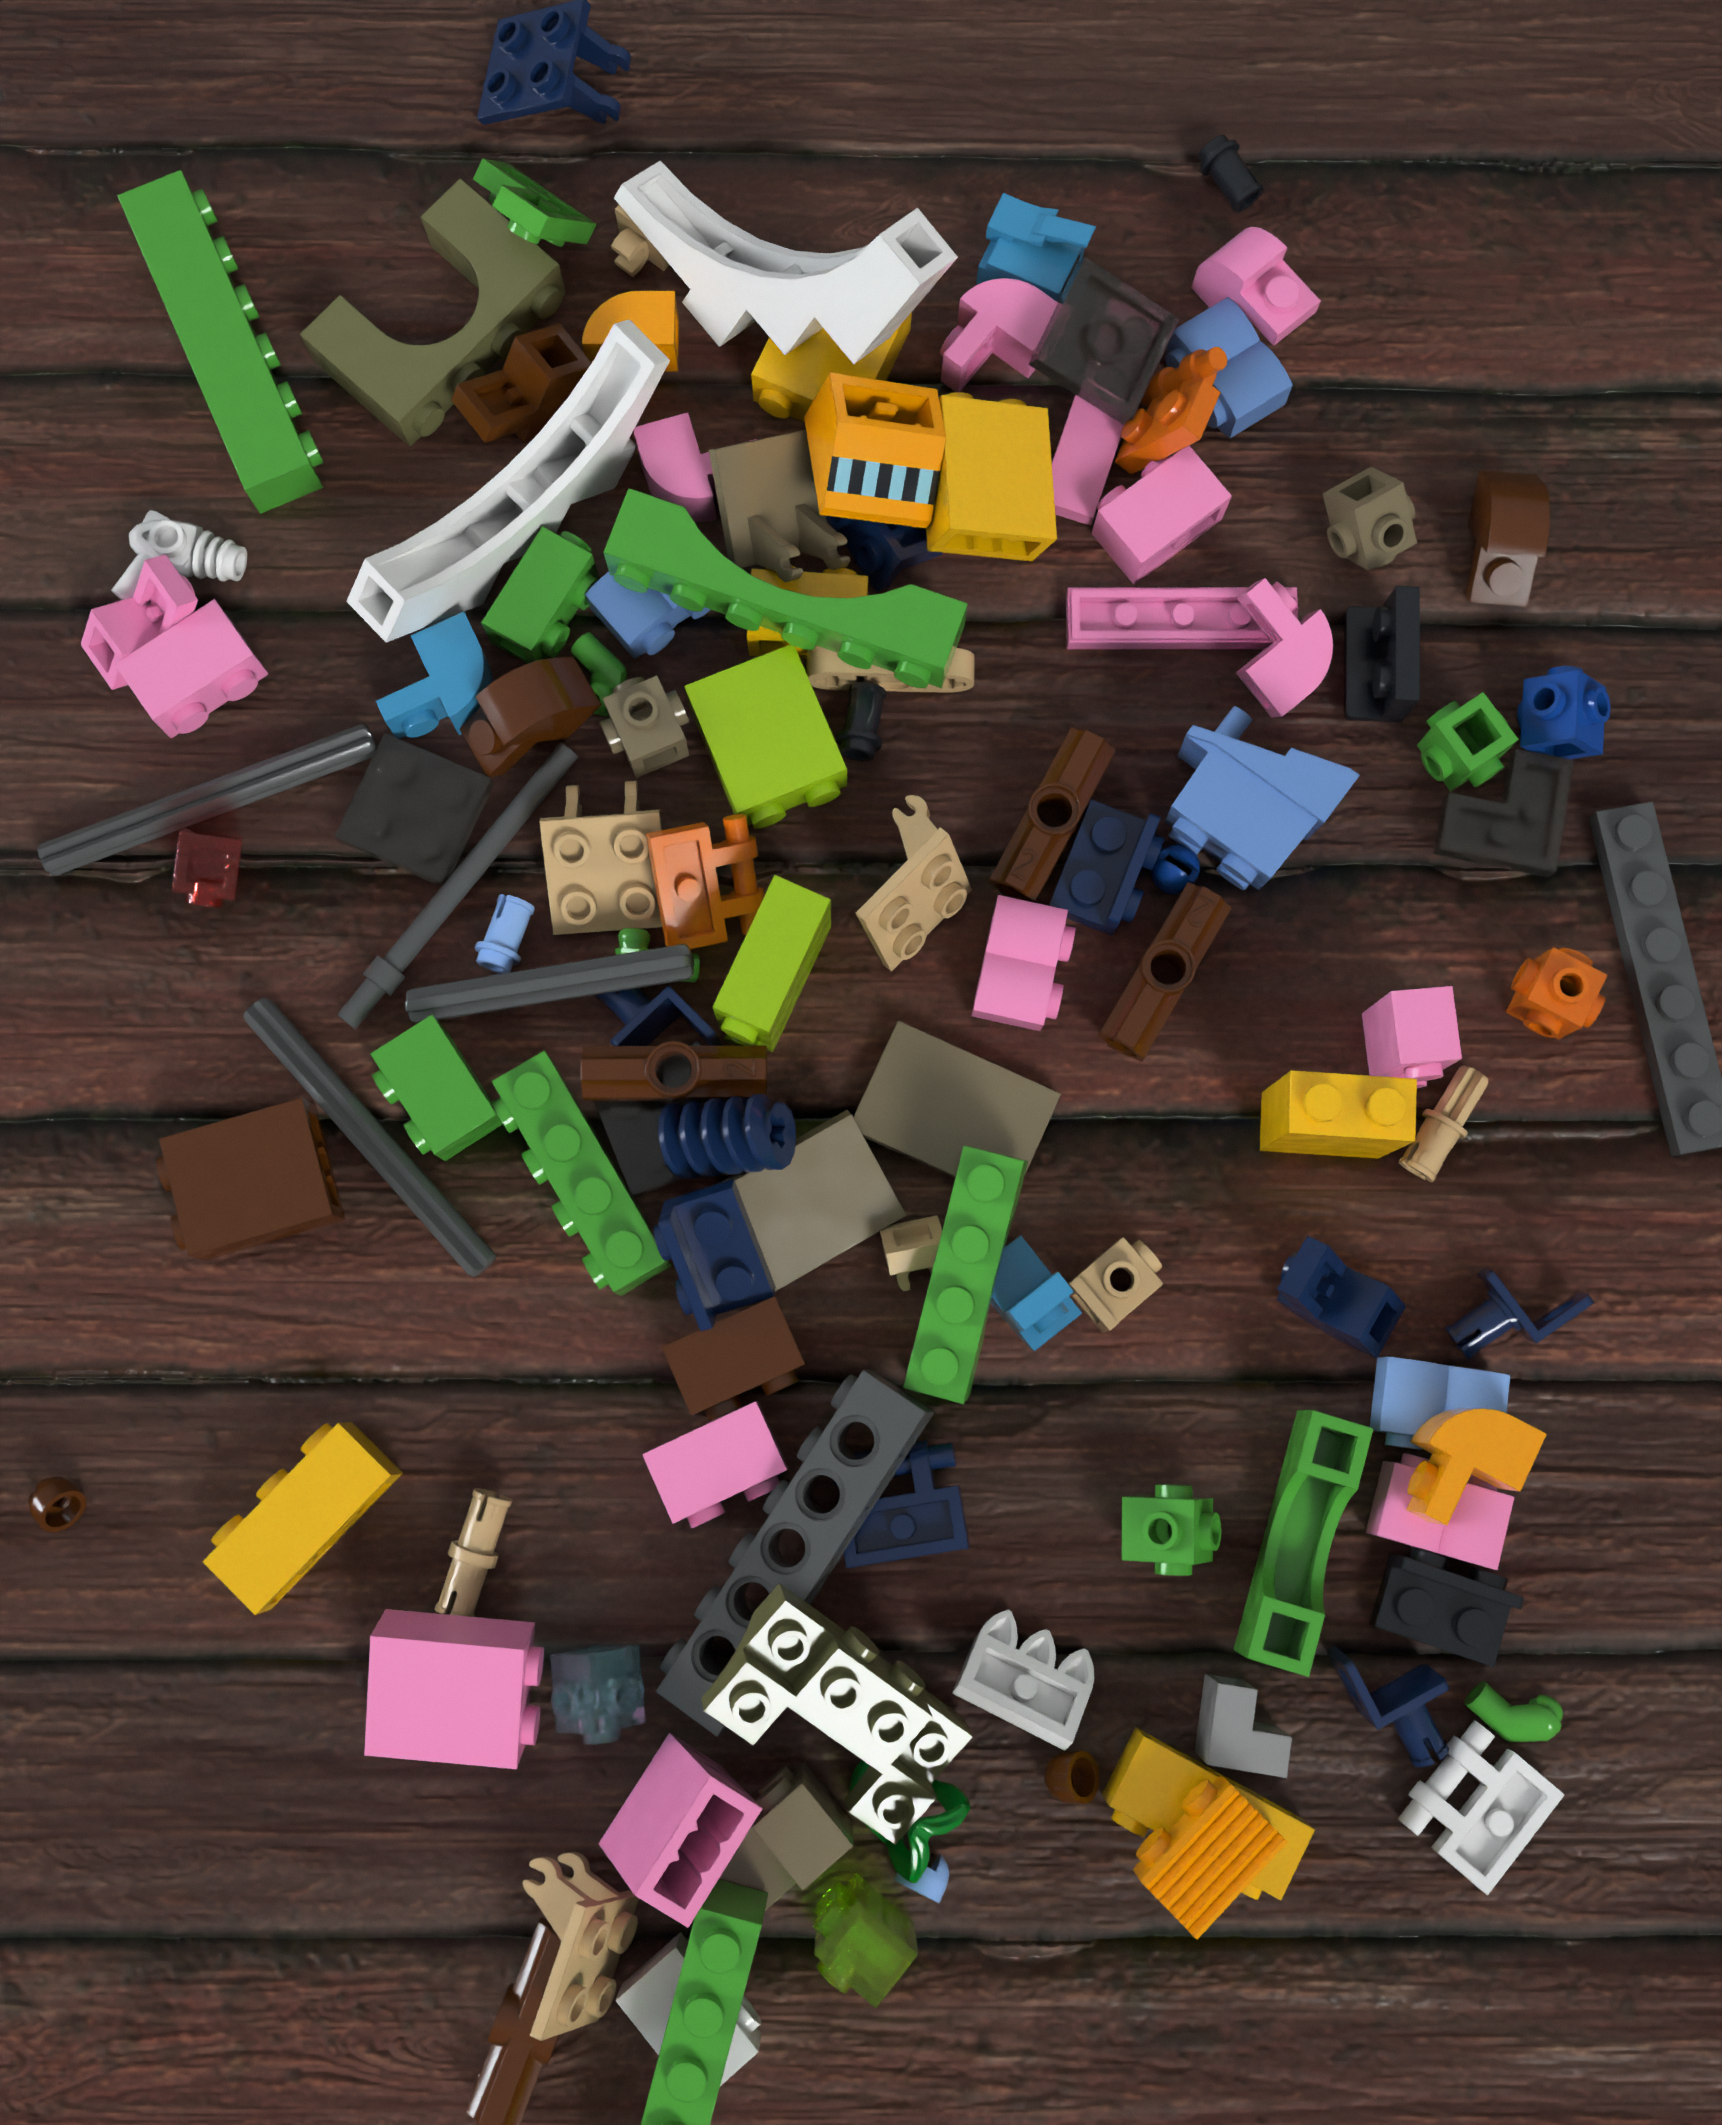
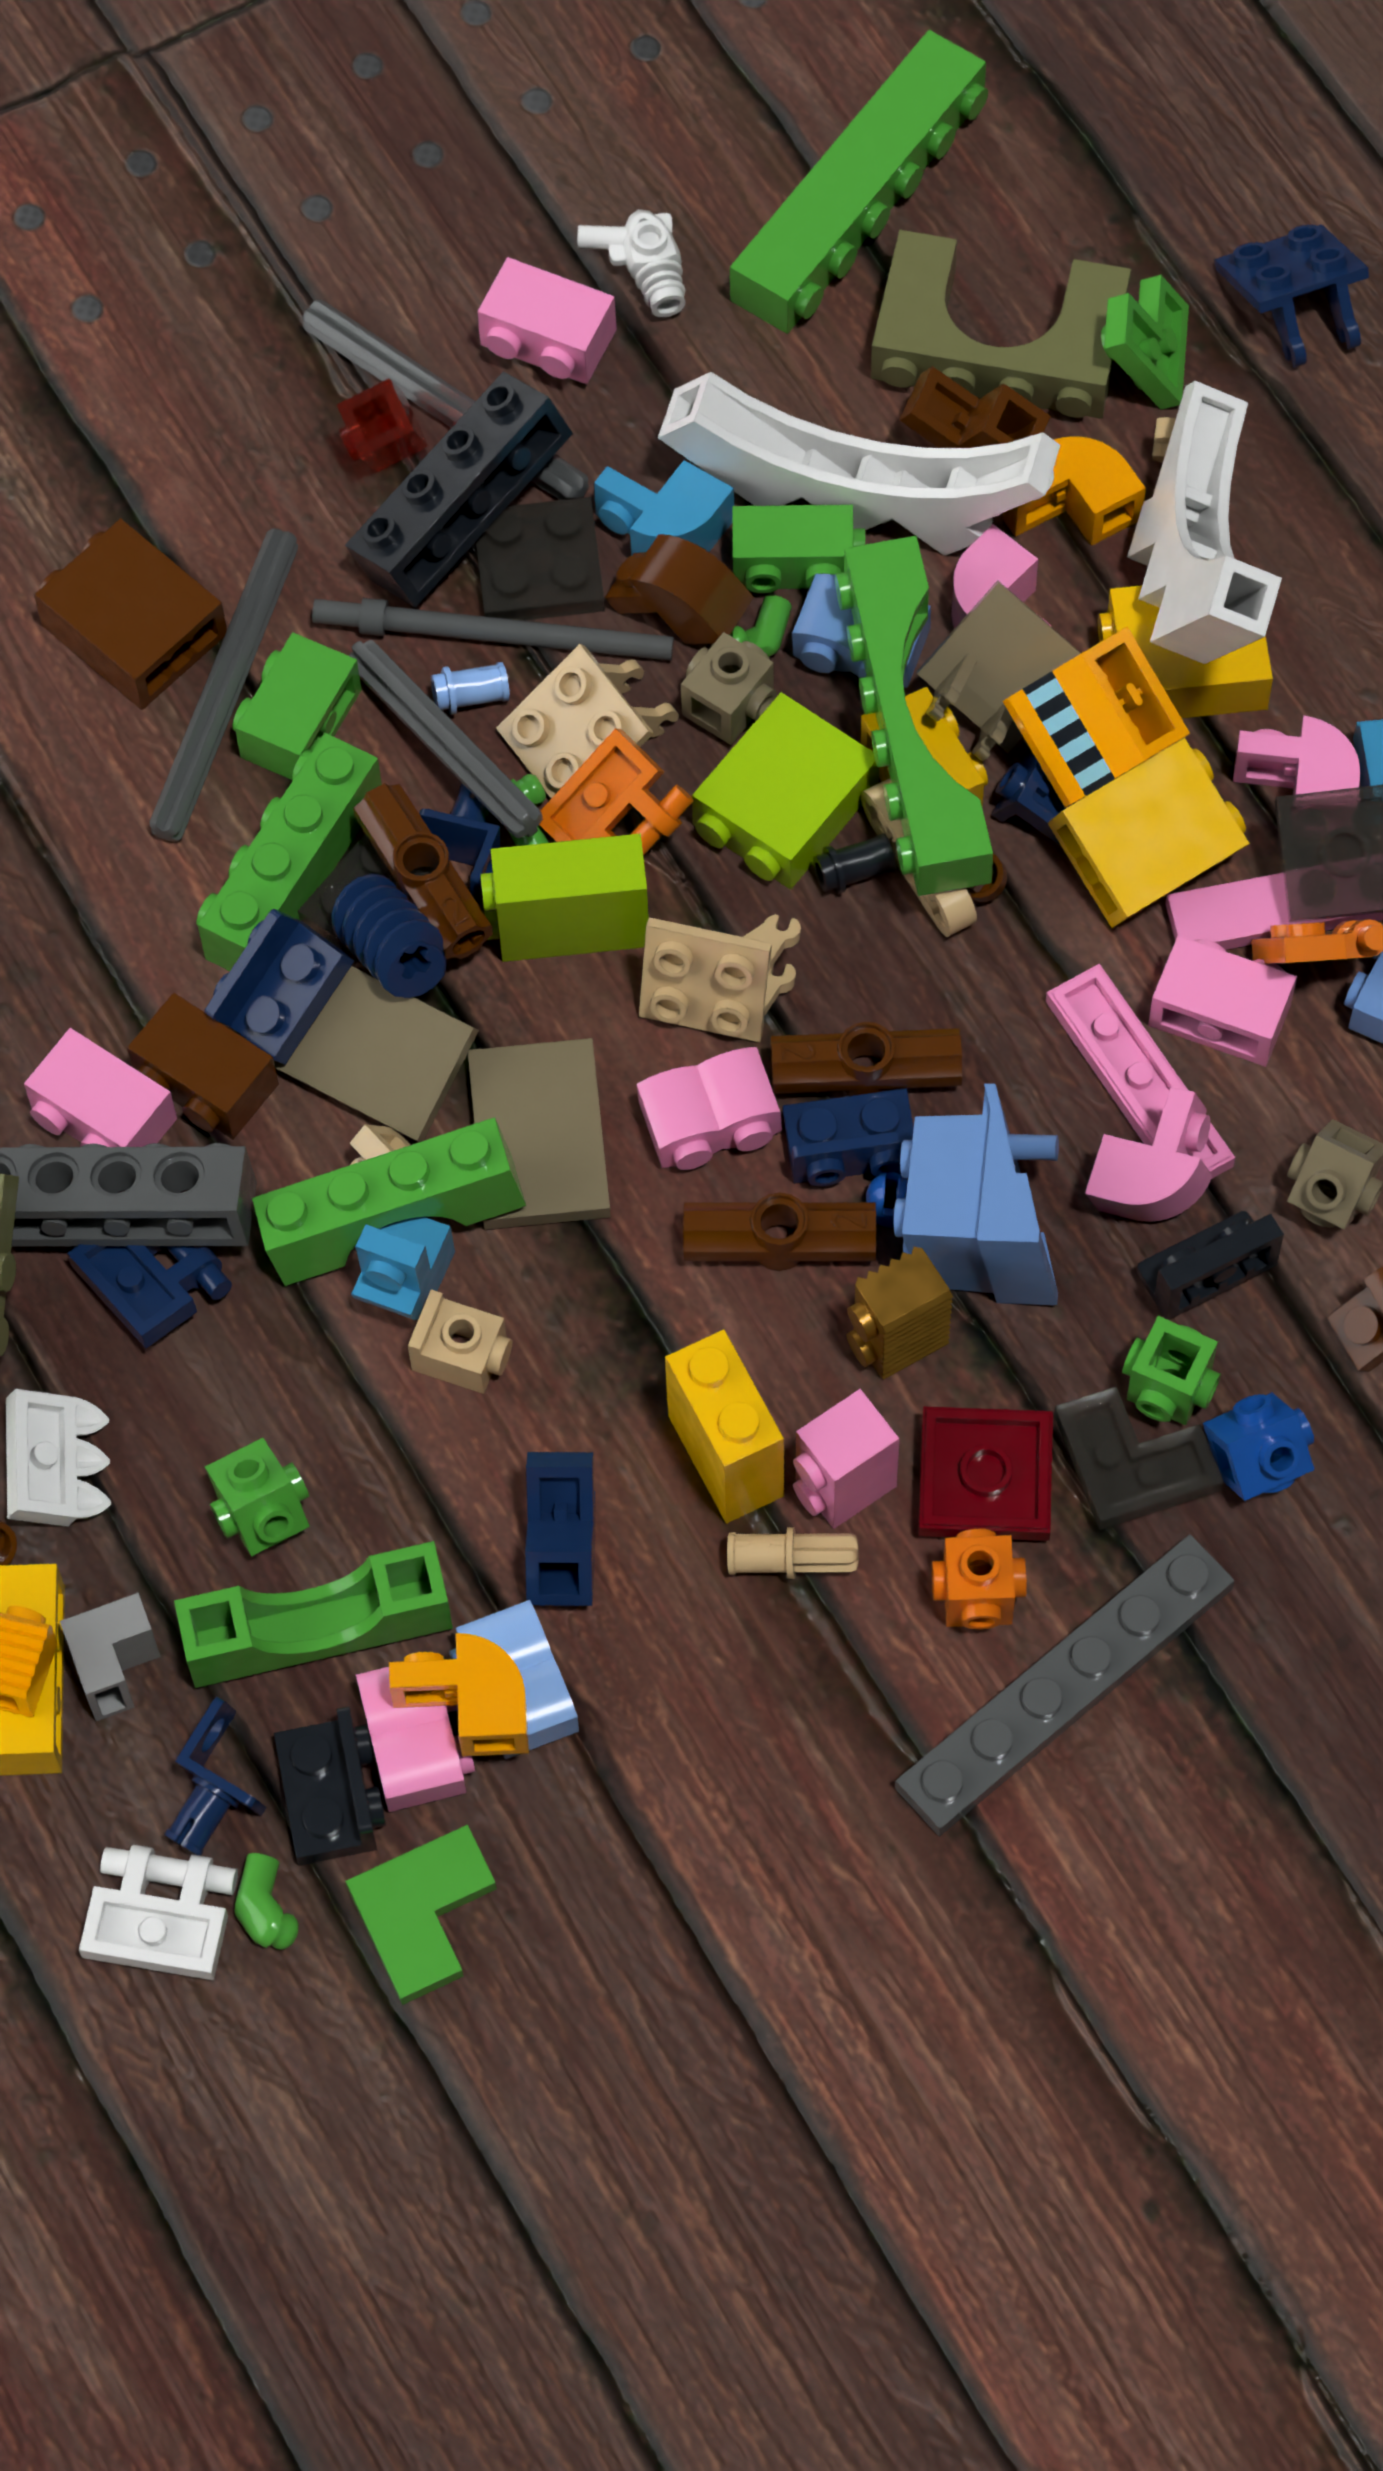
camera: 65 degrees right, 15 degrees down
(126, 625) = (555, 250): bright pink brick -> none
(316, 834) = (459, 489): none -> black brick
(1308, 920) = (900, 1314): none -> pearl gold brick
(1460, 934) = (986, 1472): none -> dark red plate
(1503, 1312) = (642, 1699): dark blue bracket -> none
(1570, 1598) = (402, 1907): none -> bright green tile

